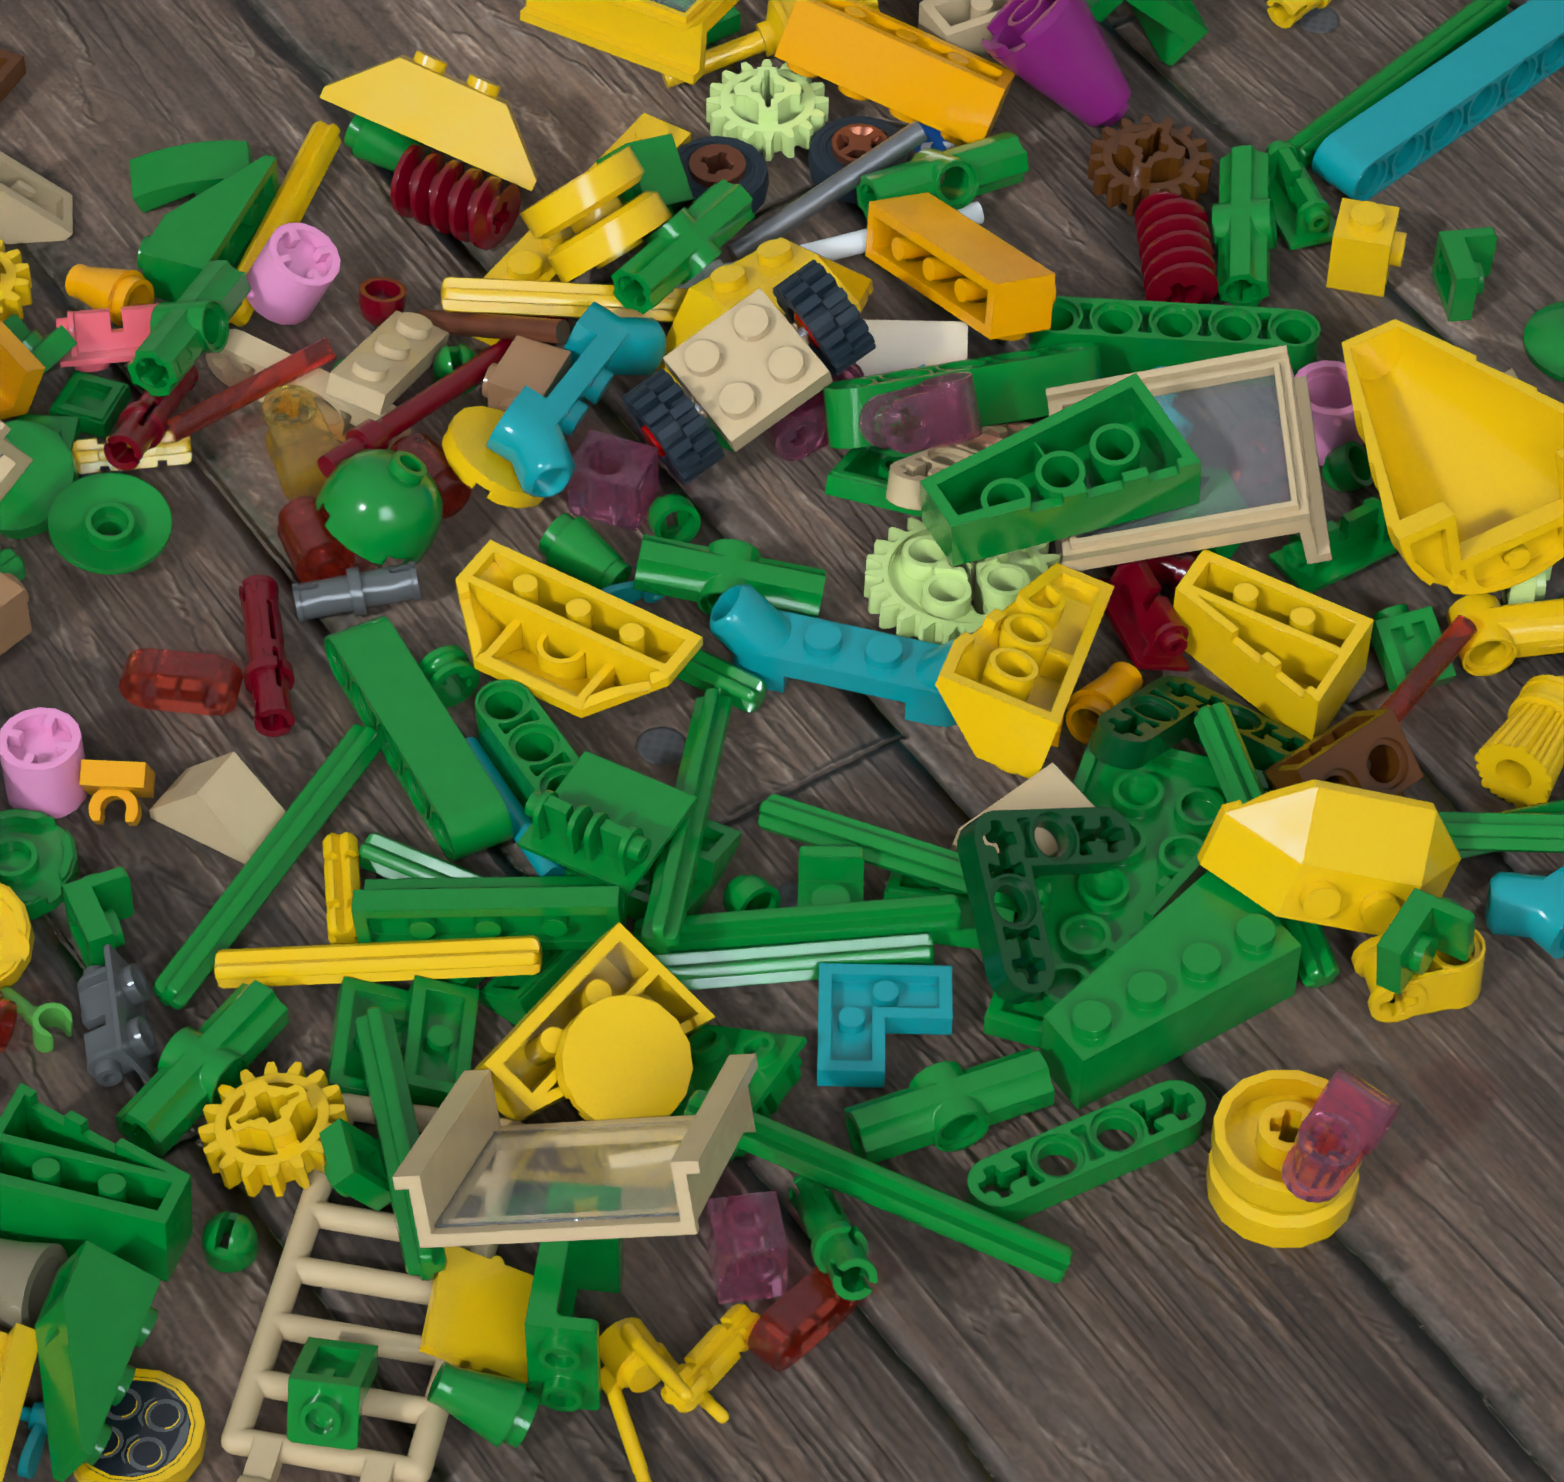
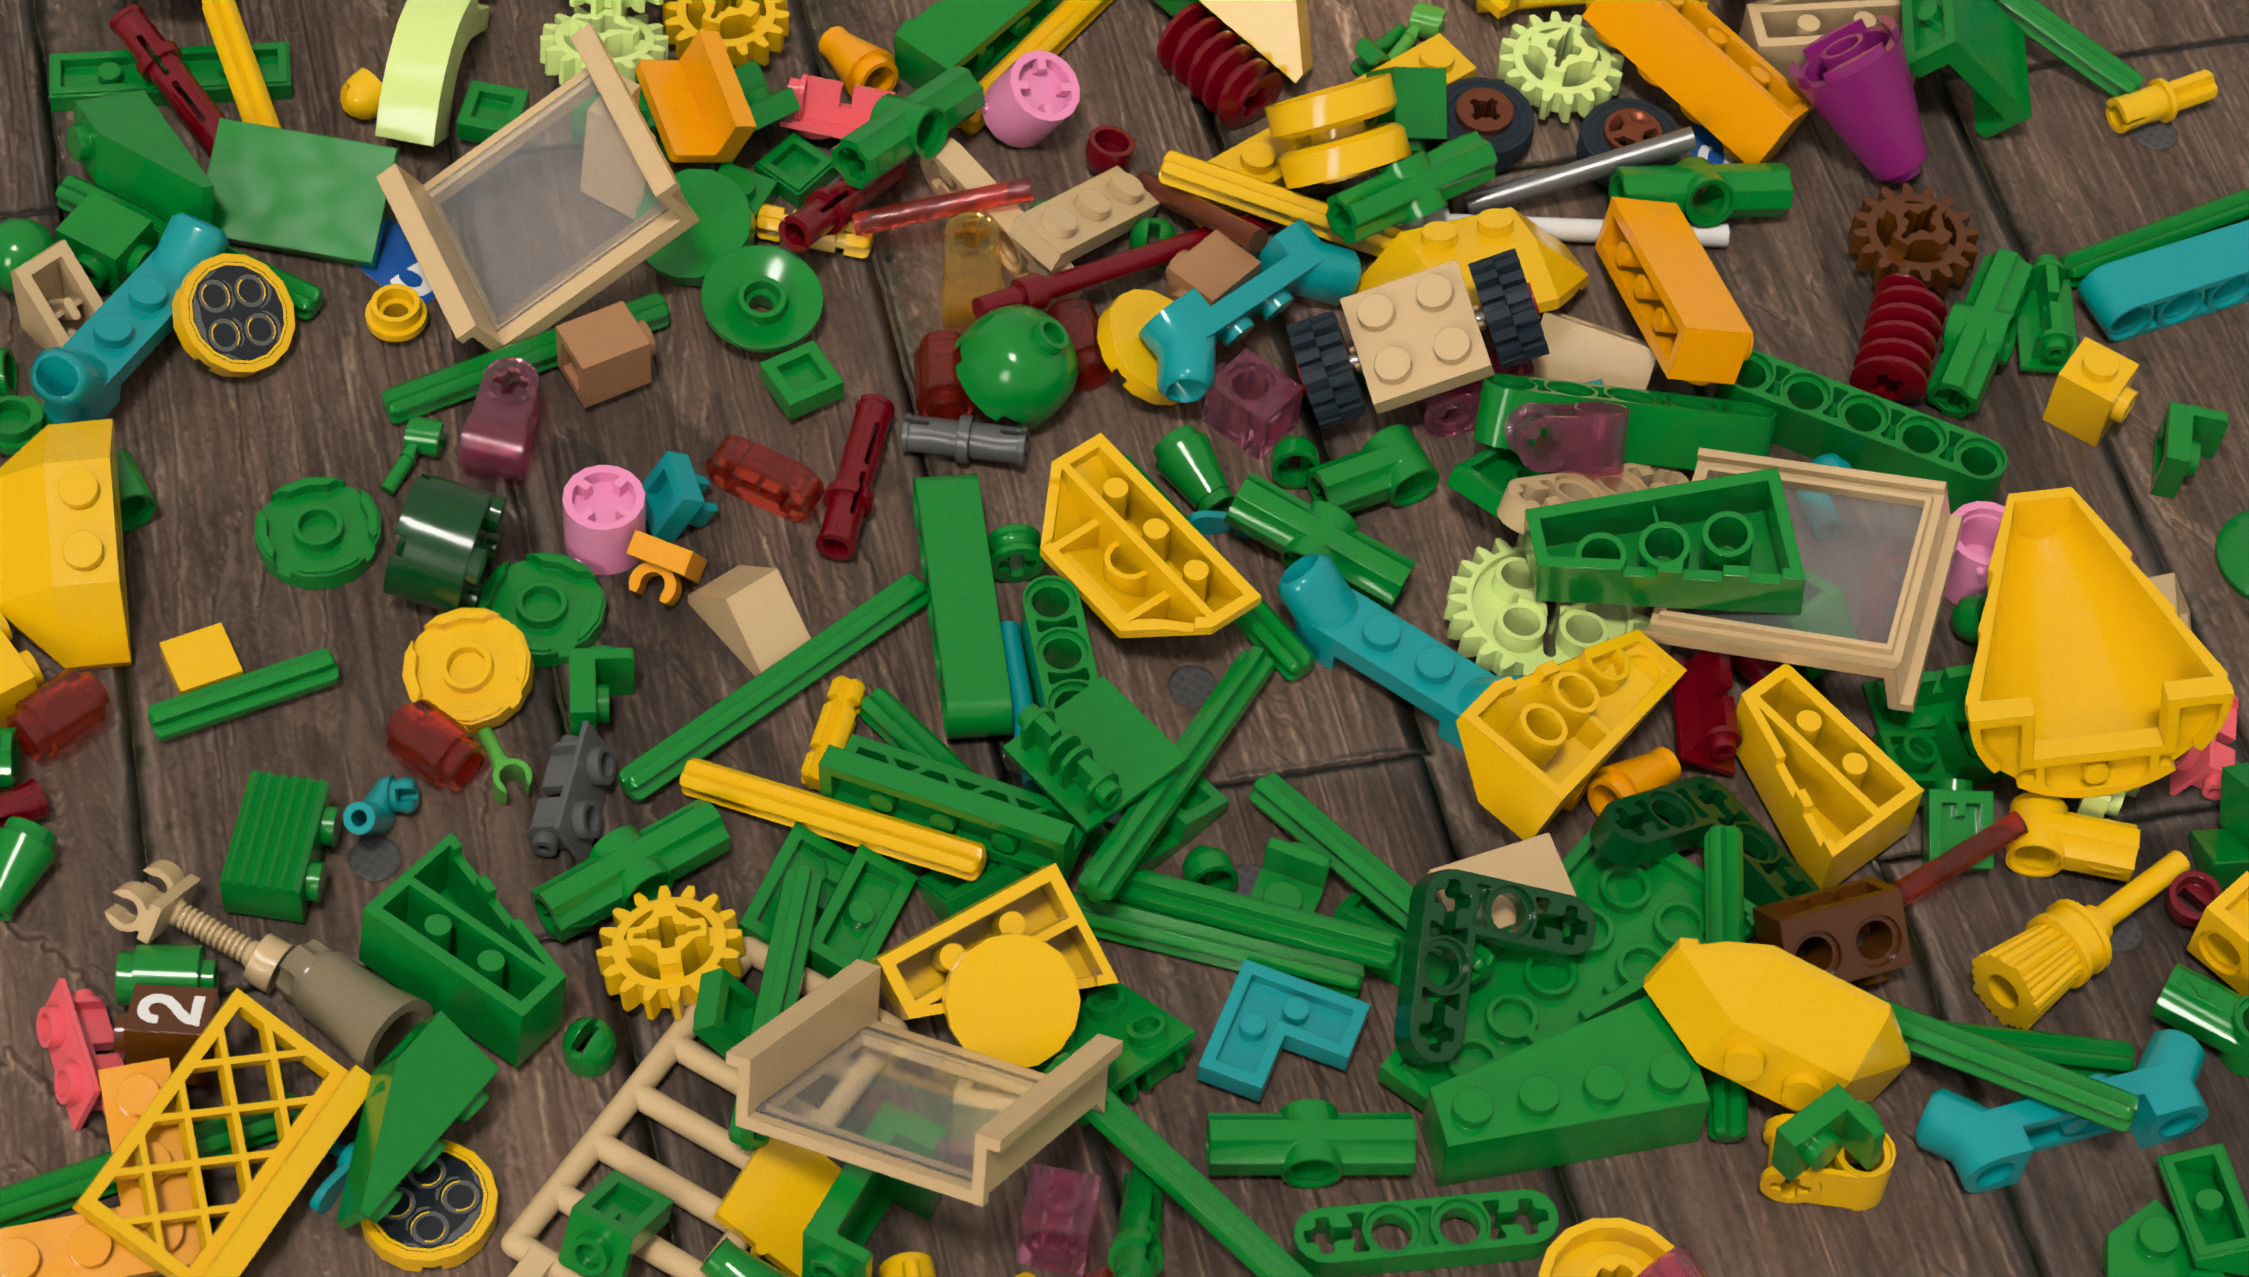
camera: 15 degrees right, 5 degrees up
(104, 721) = (675, 497): none -> teal tile
(177, 585) = (801, 380): none -> green plate
(590, 147) = (1374, 54): none -> green hand
(625, 108) = (1424, 22): none -> bright green hand
(760, 499) = (1386, 469): none -> green piece
(1375, 583) = (1936, 752): none -> green slope

